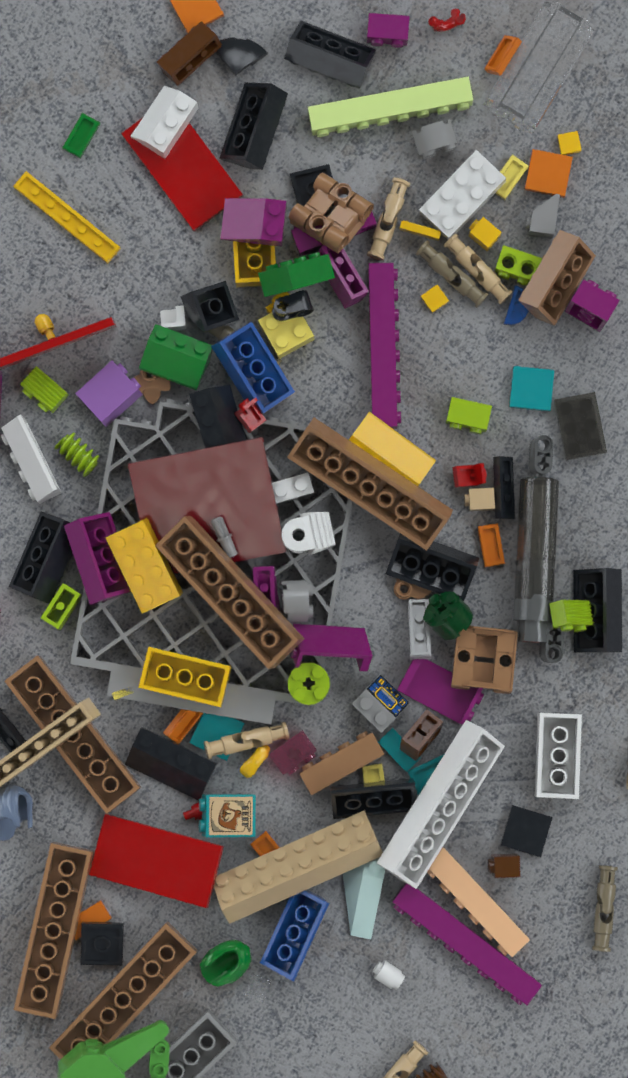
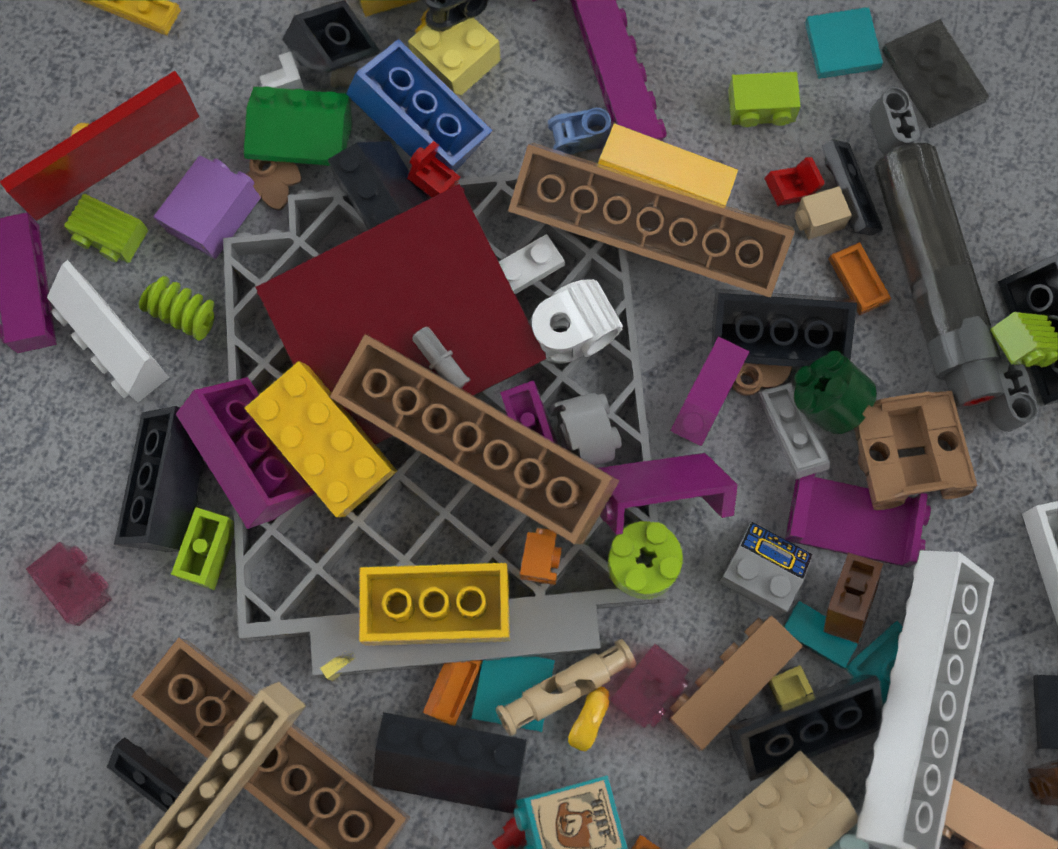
camera: 15 degrees left, 10 degrees down
(250, 666) = (540, 557): none -> orange brick
(347, 405) = (578, 131): none -> medium blue piece
(377, 593) = (709, 391): none -> magenta slope

